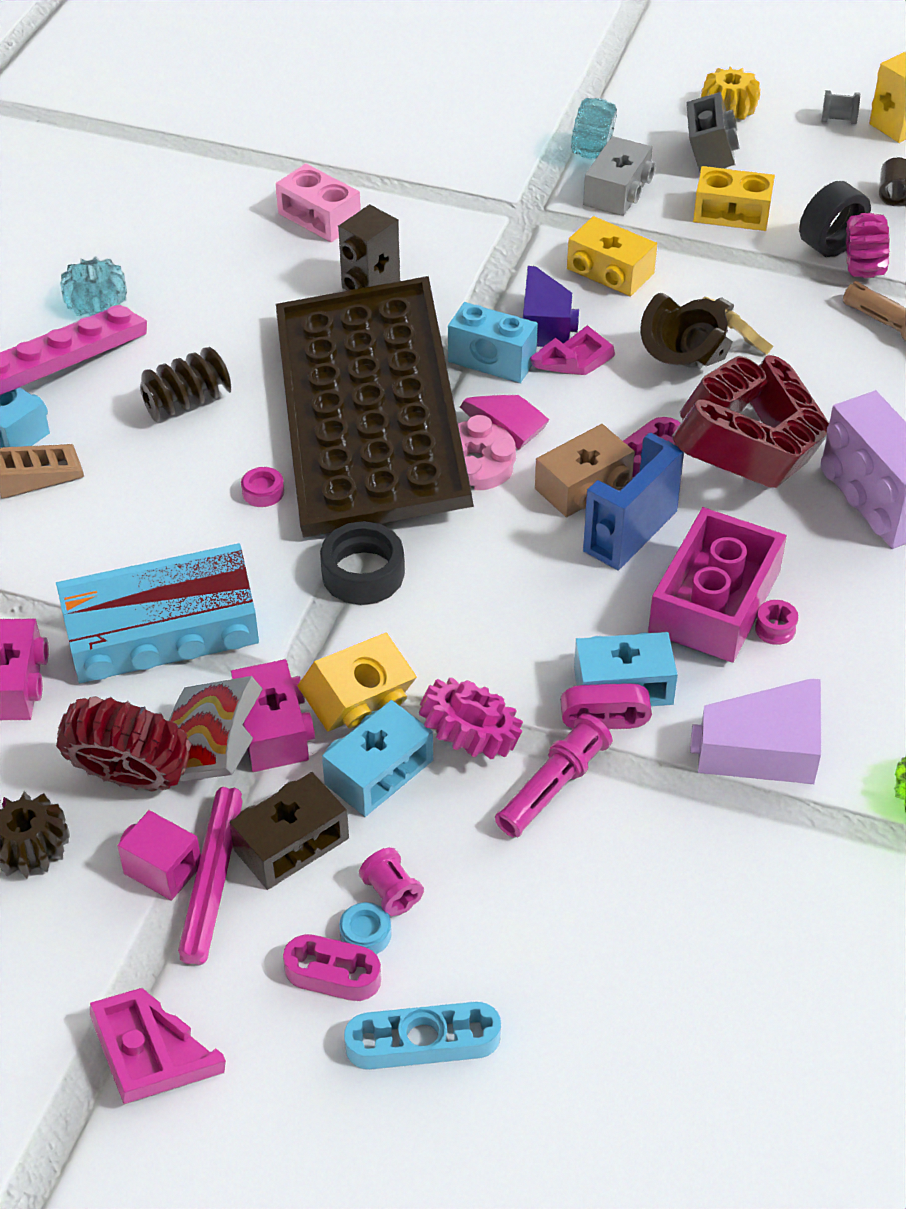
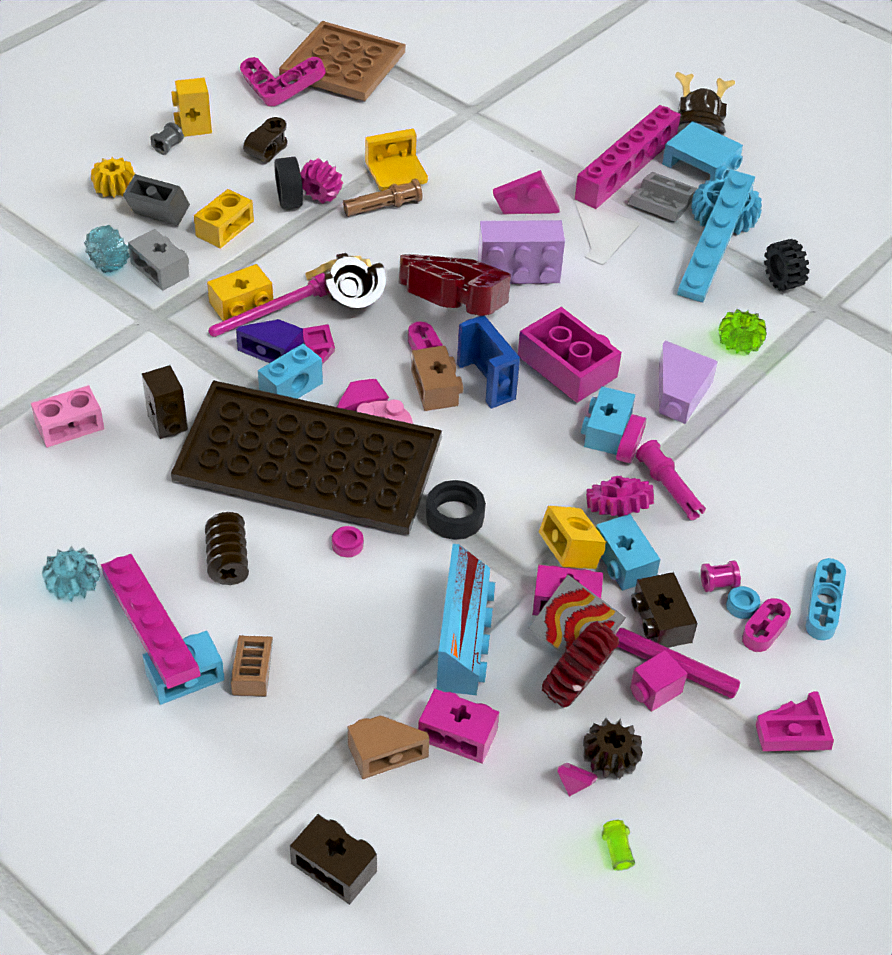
camera: 70 degrees left, 0 degrees up
(593, 283) = (315, 287): none -> dark pink piece

